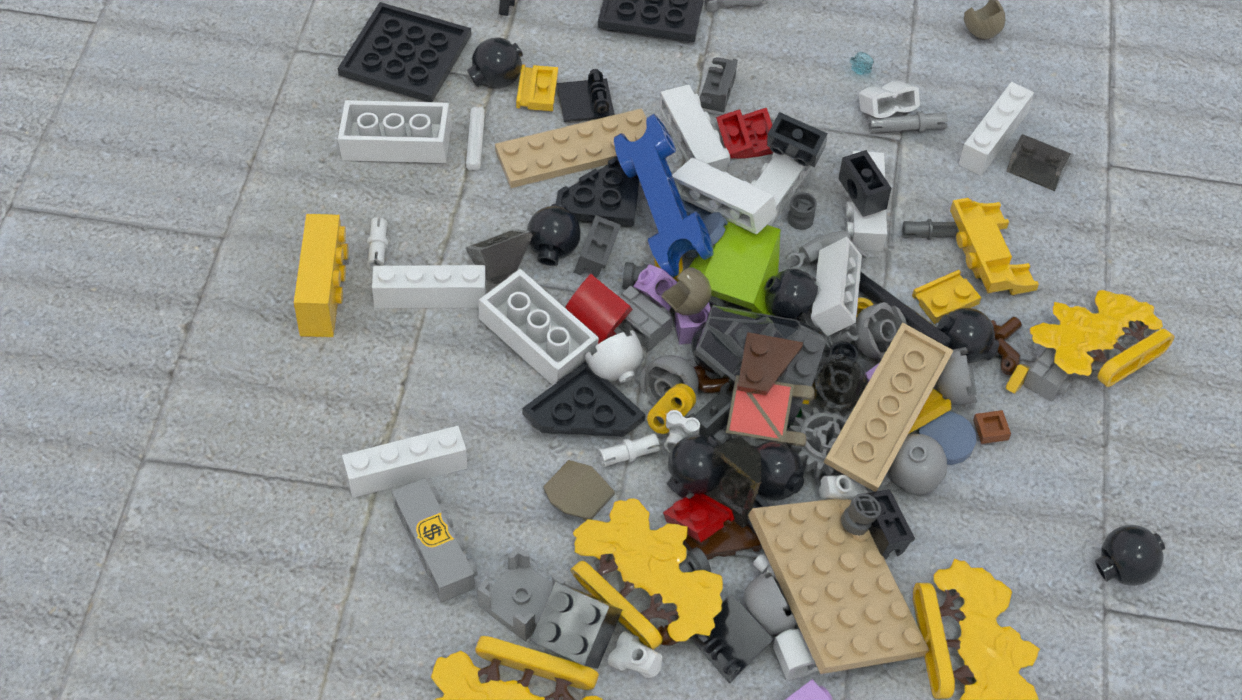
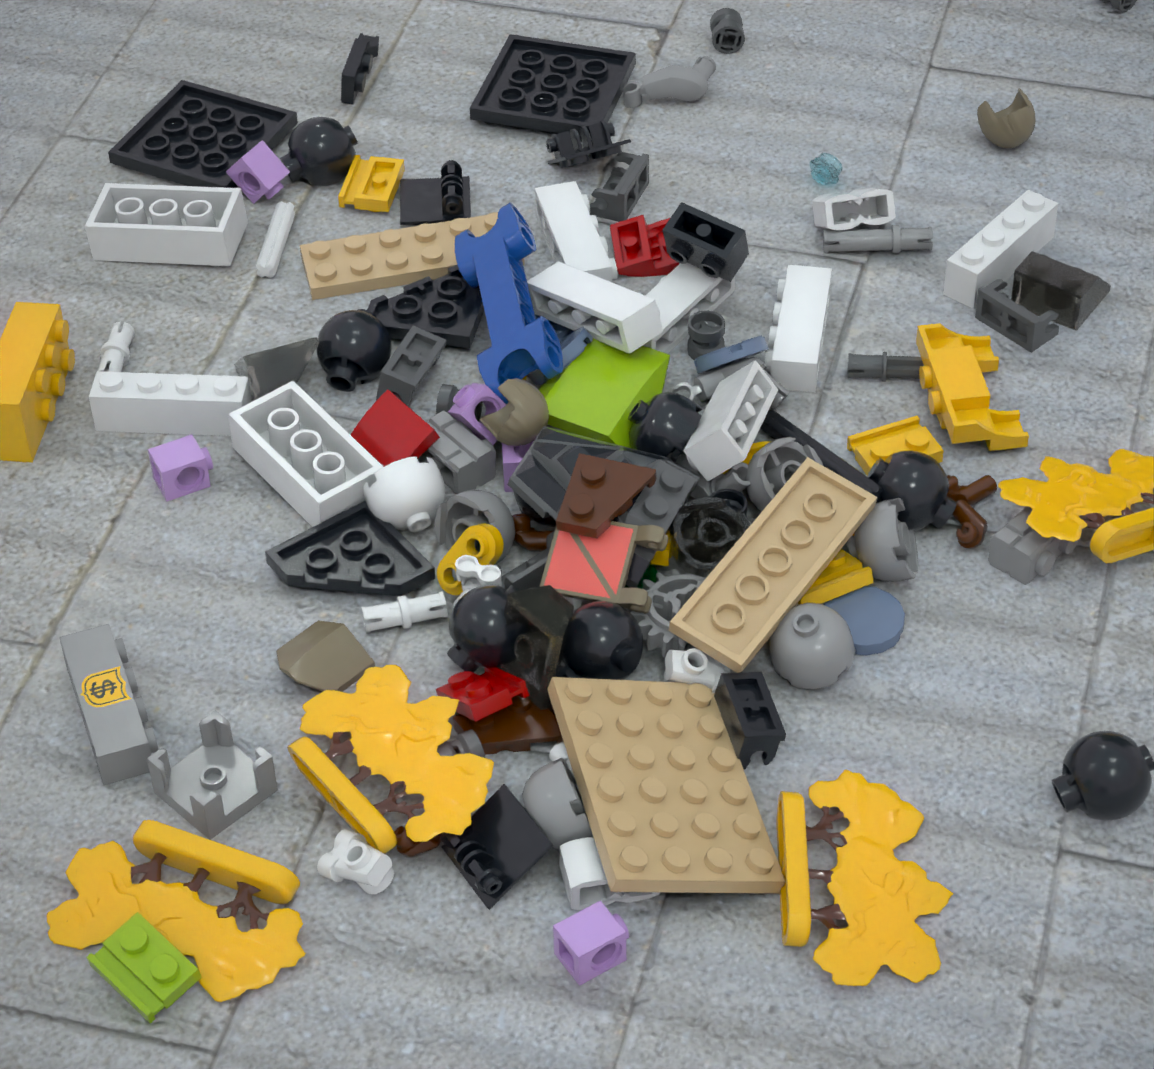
camera: 10 degrees right, 10 degrees down
(405, 461) = (123, 598): white brick -> none
(446, 339) = (180, 467): none -> lavender brick
(454, 83) = (258, 173): none -> lavender brick
(576, 625) = (276, 811): brick -> none
(687, 52) = (595, 140): none -> black hinge
(825, 228) = (729, 354): none -> sand blue tile
(860, 514) = (710, 690): dark grey wheel -> none
(864, 183) = (791, 295): black brick -> none
(991, 426) = (929, 608): dark orange plate -> none
(1012, 185) = (1014, 319): none -> dark grey hinge
(1017, 378) = (977, 551): yellow tile -> none

